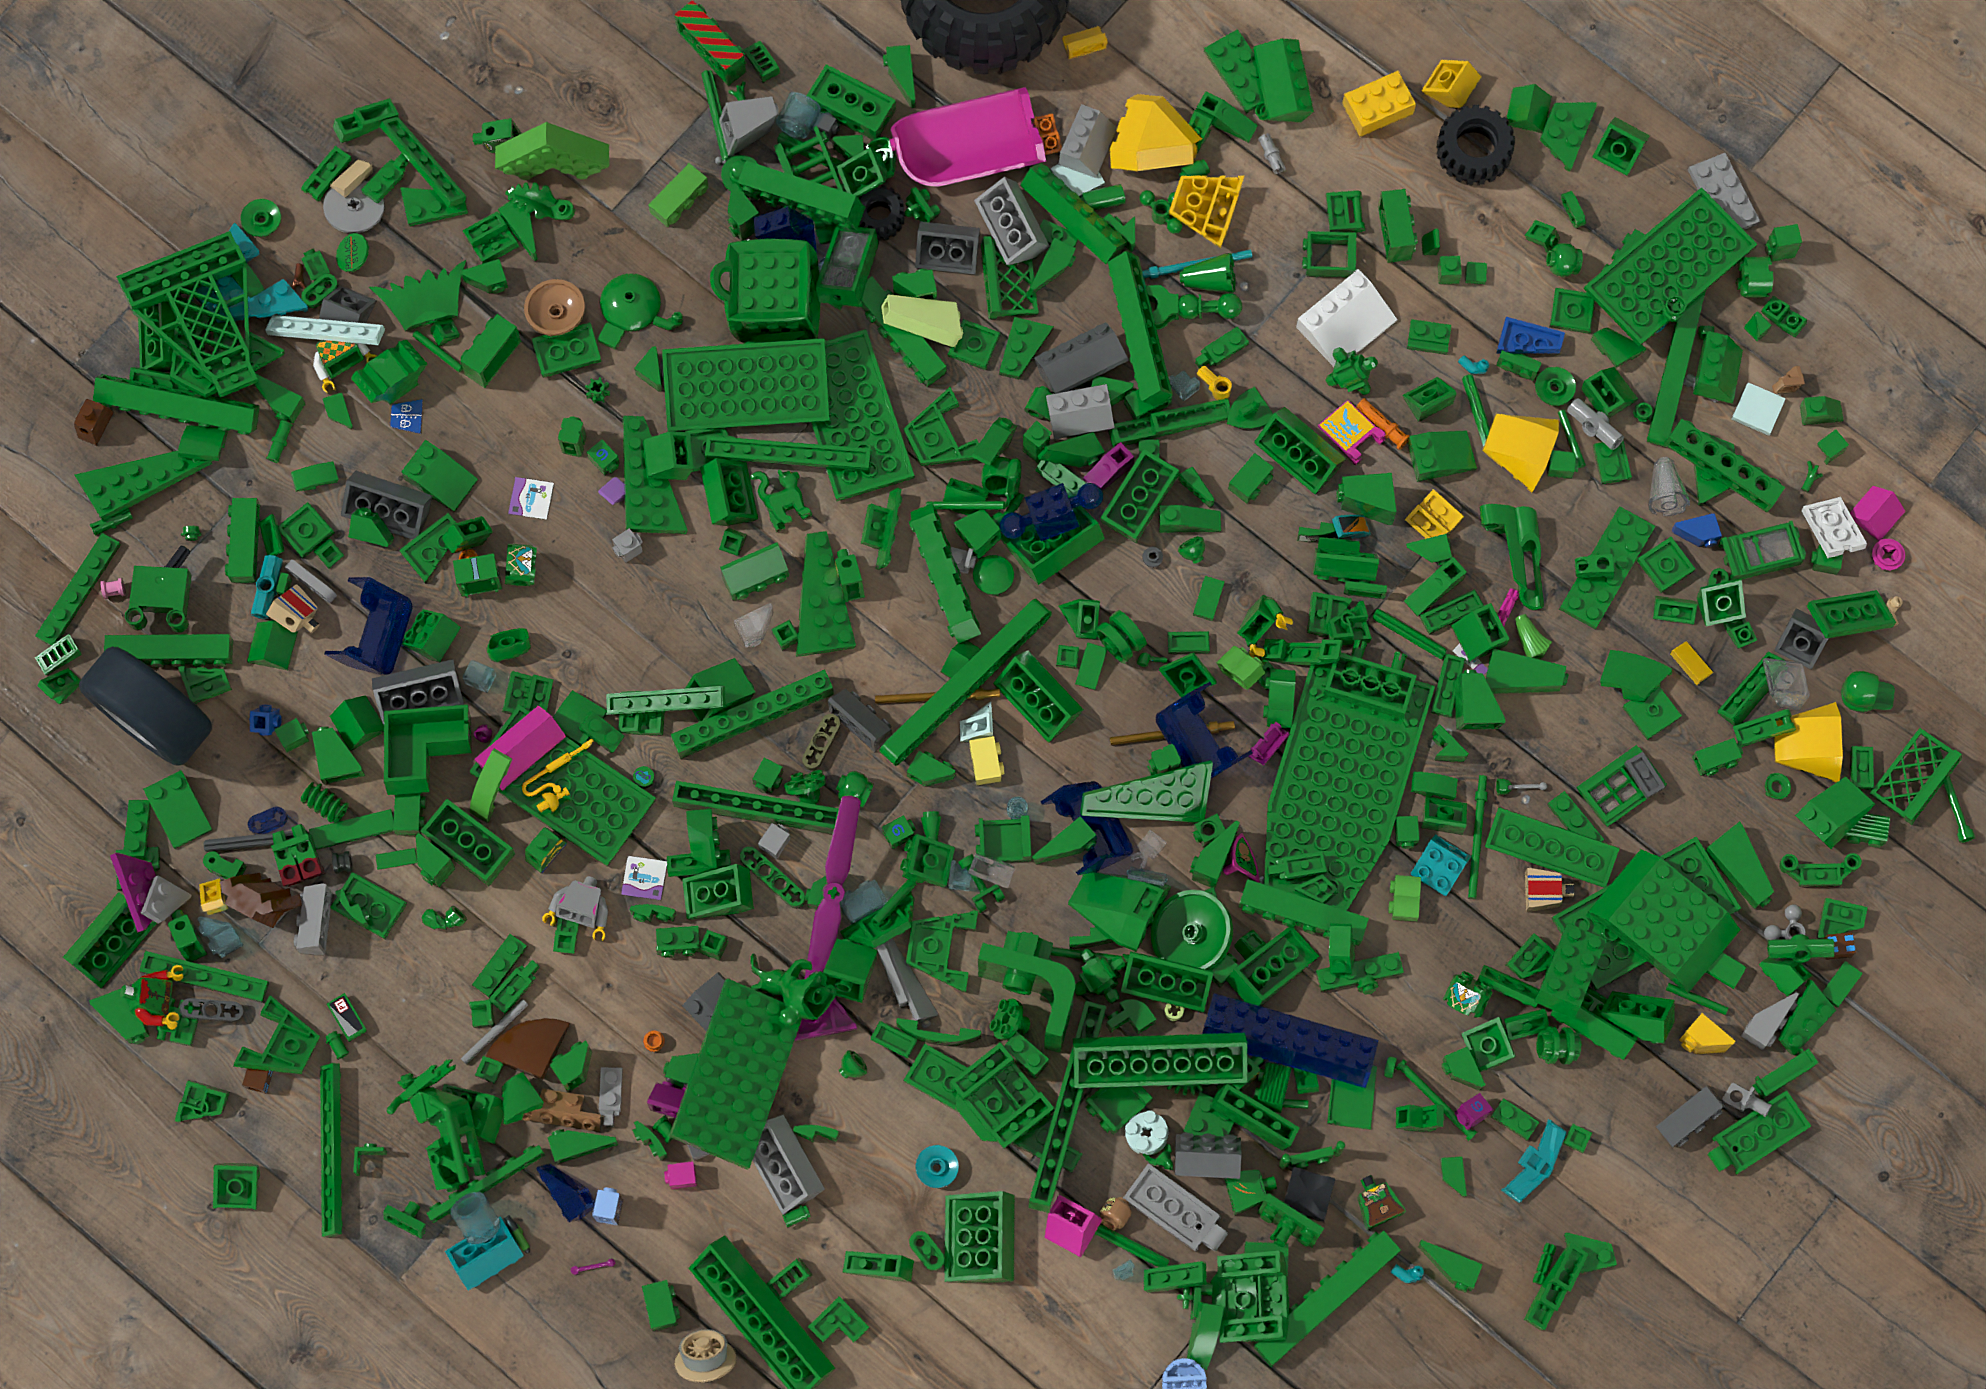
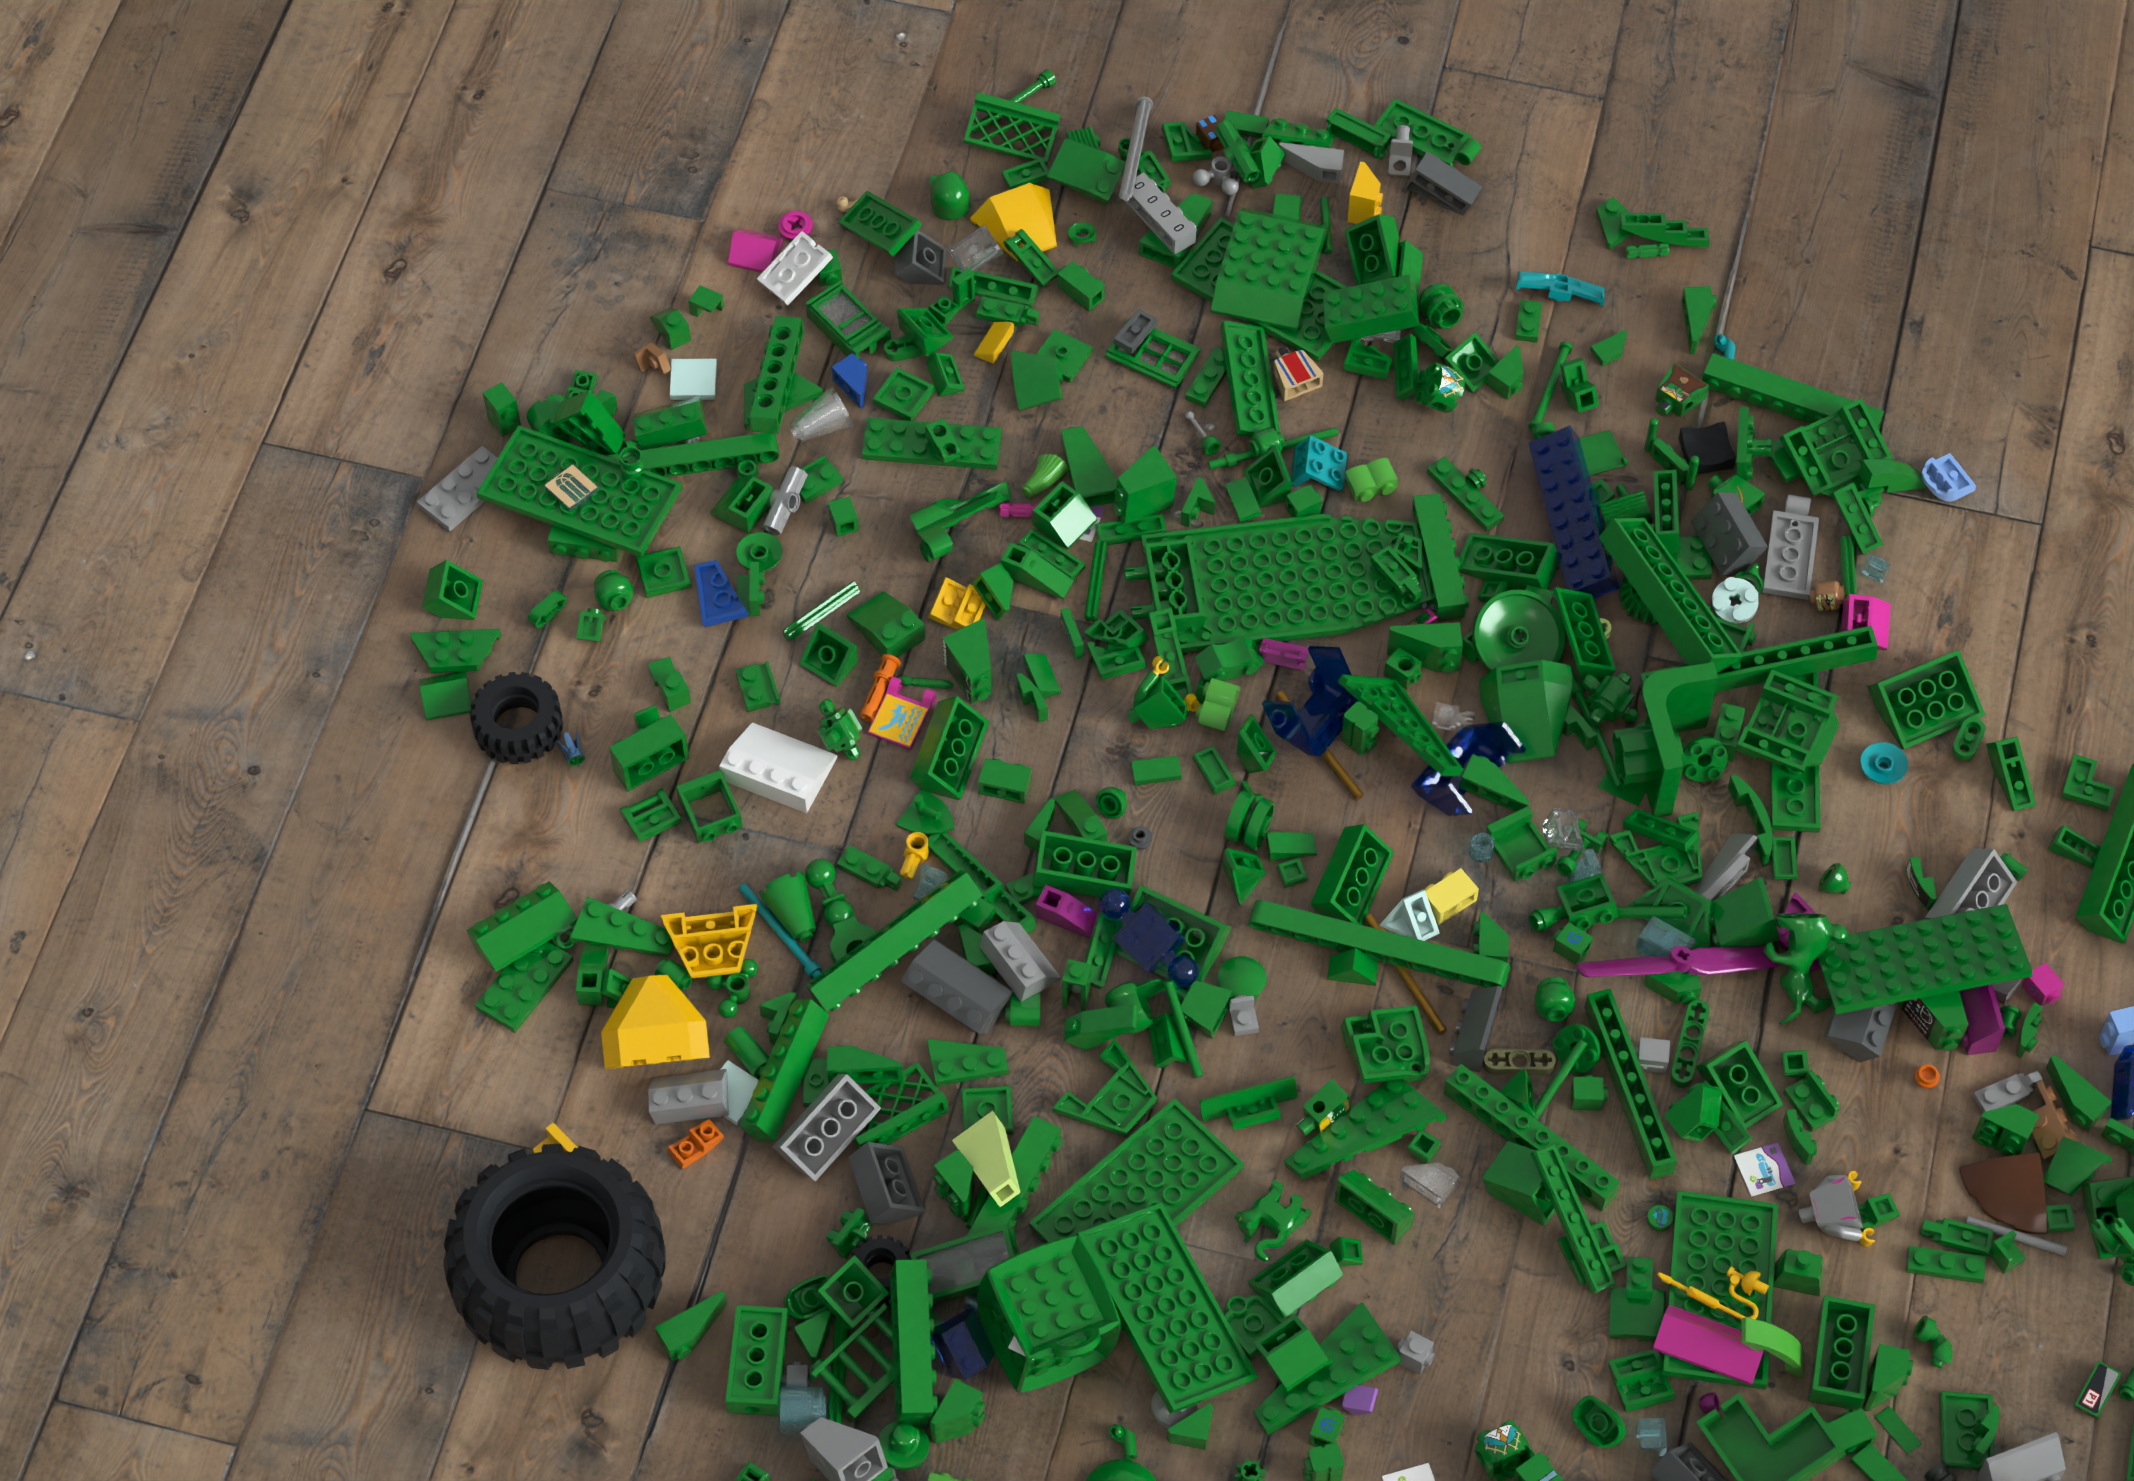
camera: 115 degrees left, 15 degrees down
(784, 751) = (1559, 1078): none -> green bar
(788, 453) = (1221, 1231): green plate -> none
(789, 723) = (1521, 1092): none -> green slope
(878, 645) = (1388, 1044): none -> green slope
(944, 573) = (1270, 1017): green brick -> none
(960, 950) = (1660, 829): none -> green plate
(968, 139) = (743, 1211): dark pink panel -> none
(1074, 452) = (1060, 944): green slope -> none
(1133, 1011) = (1627, 656): green brick -> none
(1147, 876) = (1484, 699): clear light blue piece -> none
(1250, 143) = (609, 926): none -> green wing
(1341, 948) = (1459, 504): green slope -> none
(1345, 565) = (1055, 655): green slope -> none
(1351, 526) = (1012, 667): slope -> none
(1379, 103) = (506, 829): yellow brick -> none
(1381, 449) = (925, 682): none -> green piece
(1427, 176) = (573, 754): none -> flat silver piece
(1452, 82) = (448, 773): yellow slope -> none
(1473, 1111) = (1545, 348): magenta brick -> none
(1474, 367) = (772, 633): teal arm -> none
(1478, 826) = (1265, 440): none -> green head
(1522, 445) = (839, 553): yellow wedge -> none
(1571, 437) = (806, 523): green bar -> none
(1577, 1138) = (1515, 263): green plate -> none
(1616, 346) = (685, 518): green slope -> none
(1673, 258) = (571, 487): none -> piece
(1719, 685) = (1004, 311): none -> green hinge
(1730, 297) = (590, 424): none -> green wedge
(1750, 653) = (963, 288): none -> green tile
(1757, 846) = (1161, 215): none -> light grey brick
(1811, 477) = (745, 312): green bar -> none
(1838, 858) = (1144, 106): none -> light grey axle

